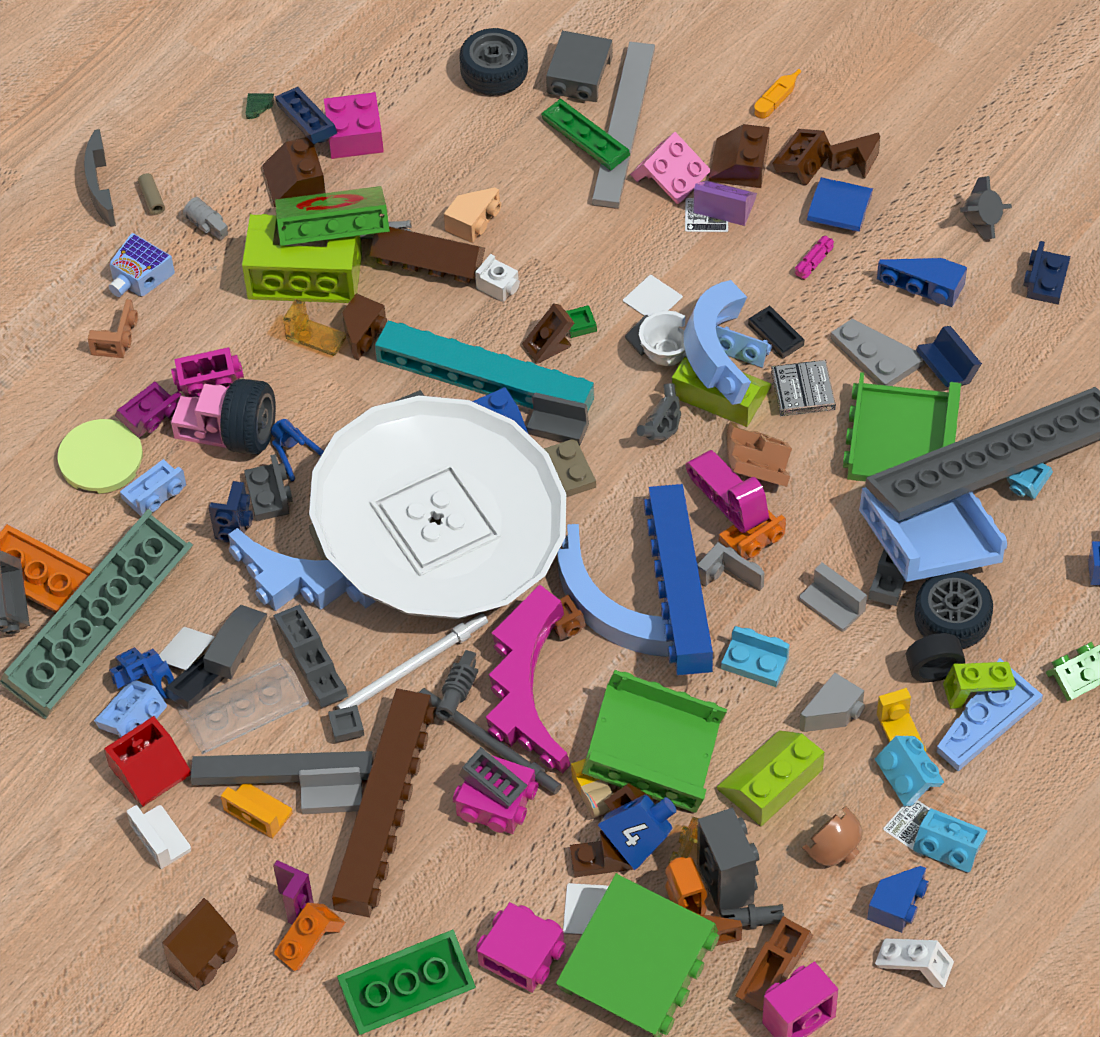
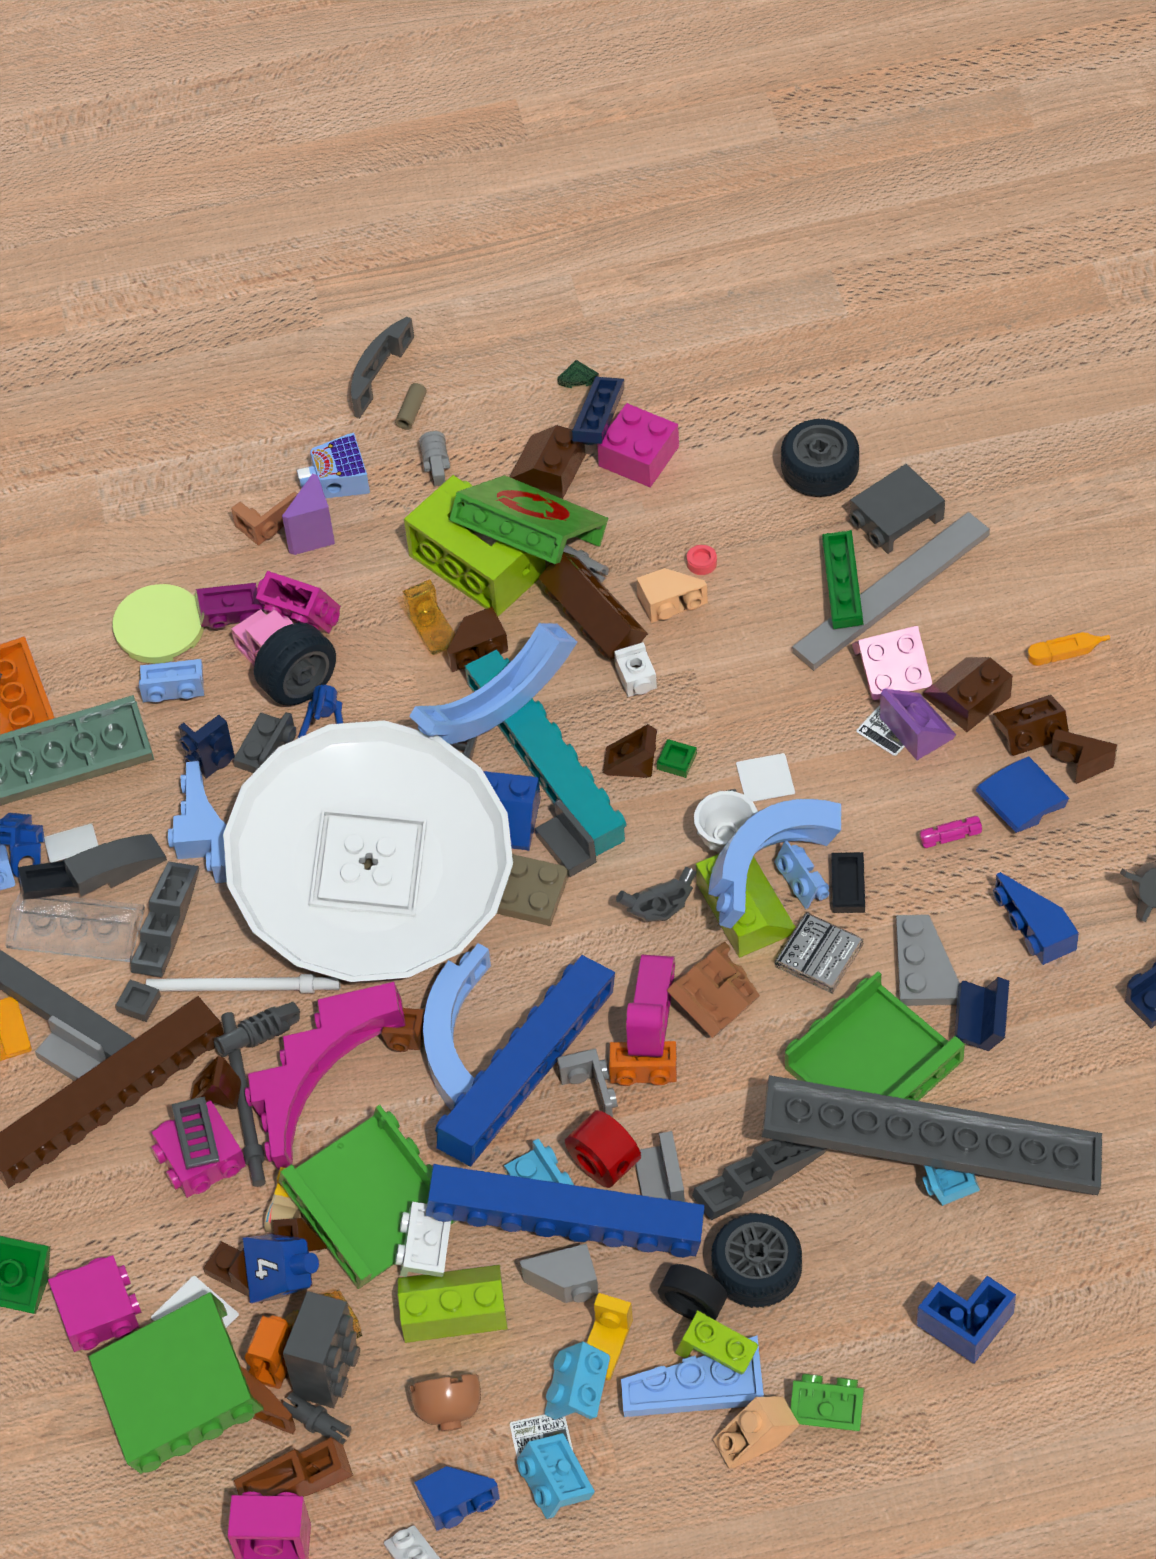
camera: 40 degrees right, 0 degrees up
(161, 309) = (308, 519): none -> medium lavender slope
(430, 338) = (502, 695): none -> light blue arch
(463, 743) = (218, 1084): none -> reddish brown slope
(469, 179) = (701, 559): none -> coral tile
(718, 745) = (424, 1243): none -> white bracket
(786, 604) = (603, 1148): none -> red piece
(800, 660) = (565, 1211): none -> blue brick
(939, 539) = (798, 1183): light blue panel -> none
(1055, 719) = (756, 1430): none -> light nougat slope

